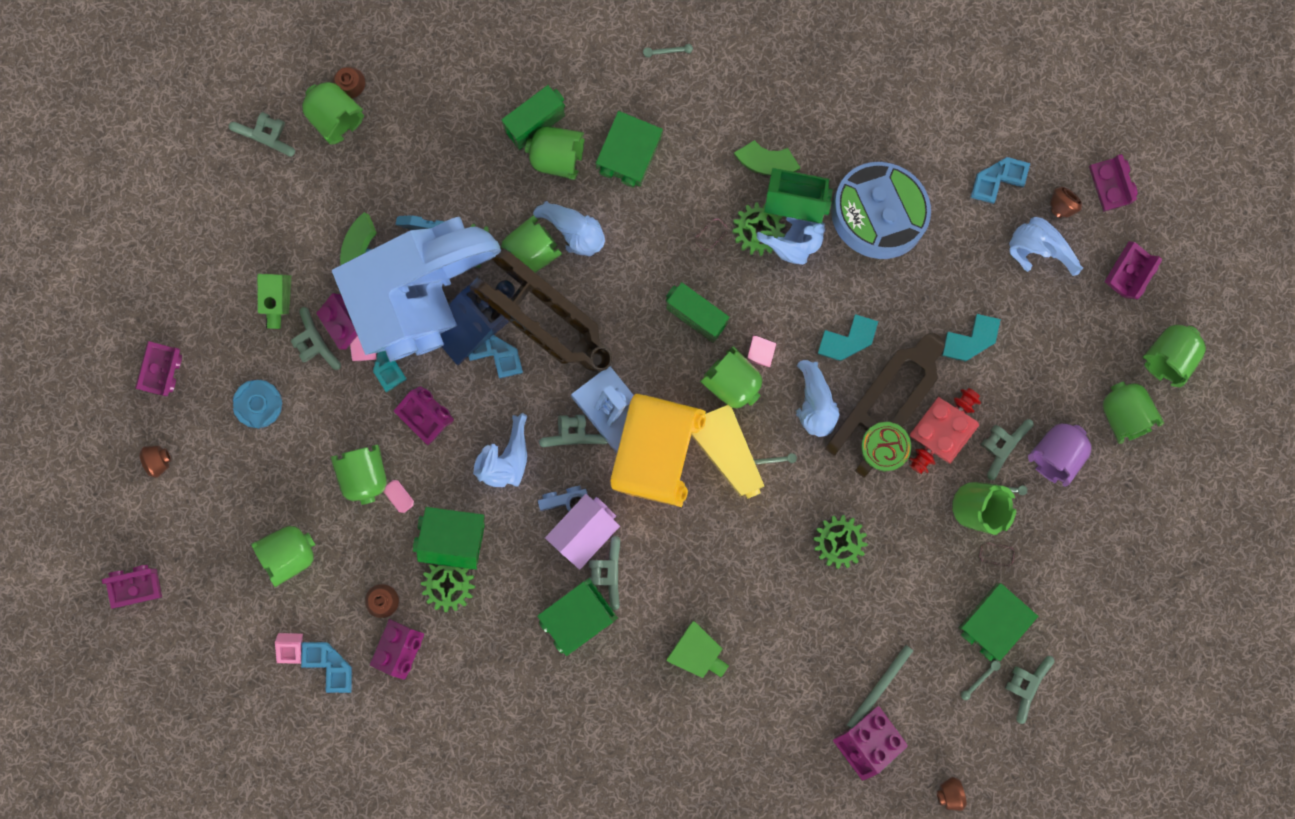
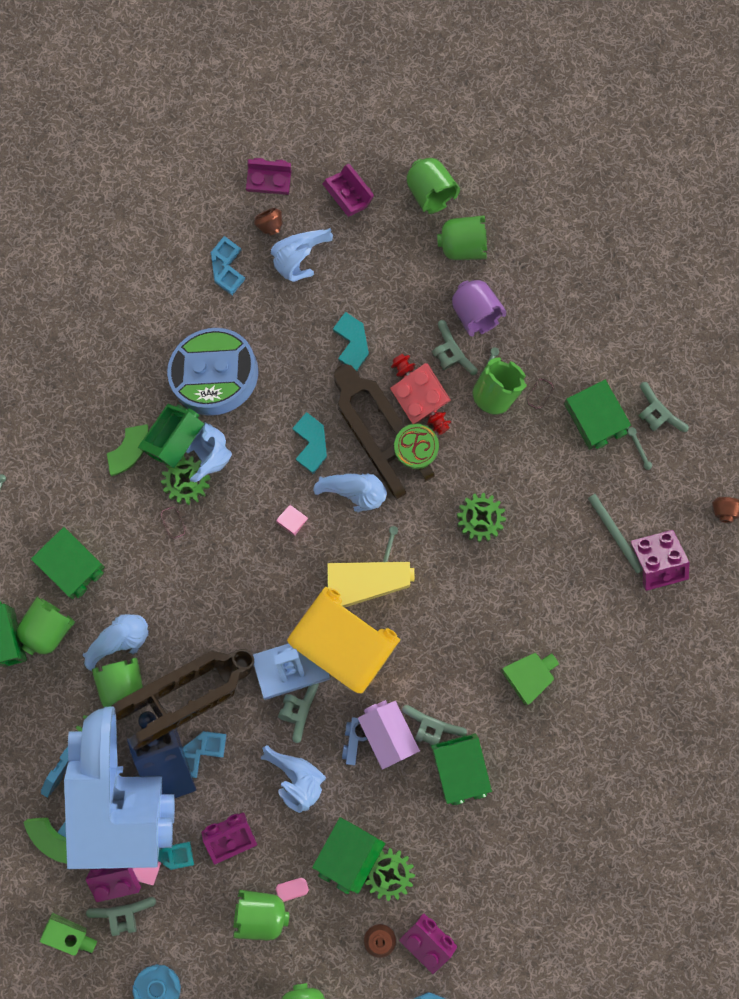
camera: 70 degrees left, 5 degrees down
(696, 311) = (236, 560): green brick -> none
(733, 380) = (307, 552): bright green cylinder -> none

